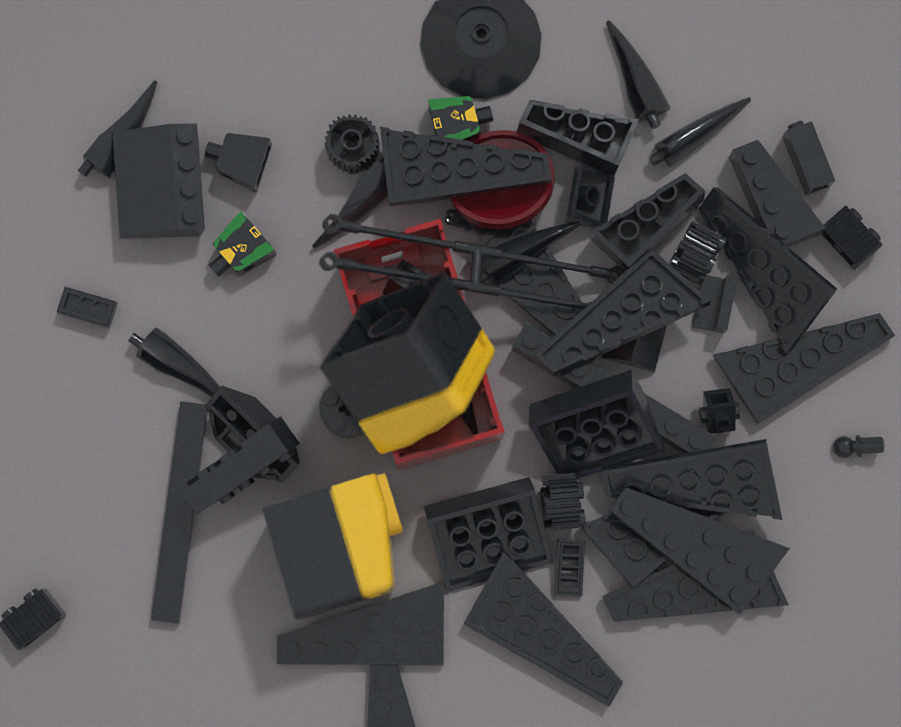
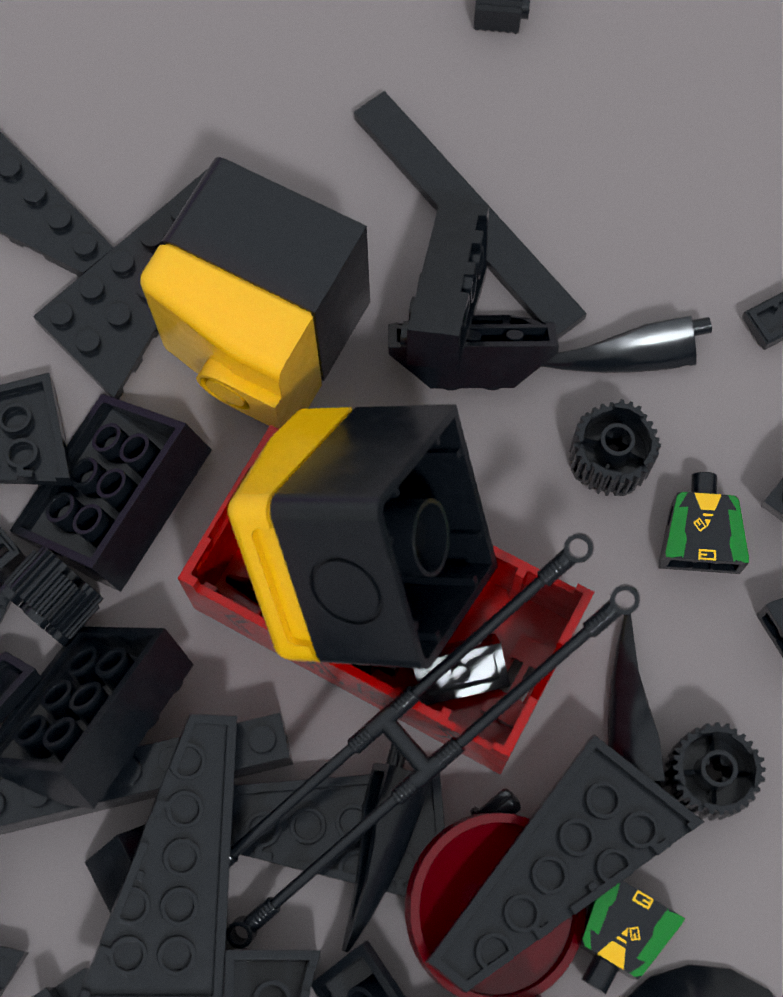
camera: 135 degrees right, 10 degrees down
(227, 315) = (610, 469): none -> black brick

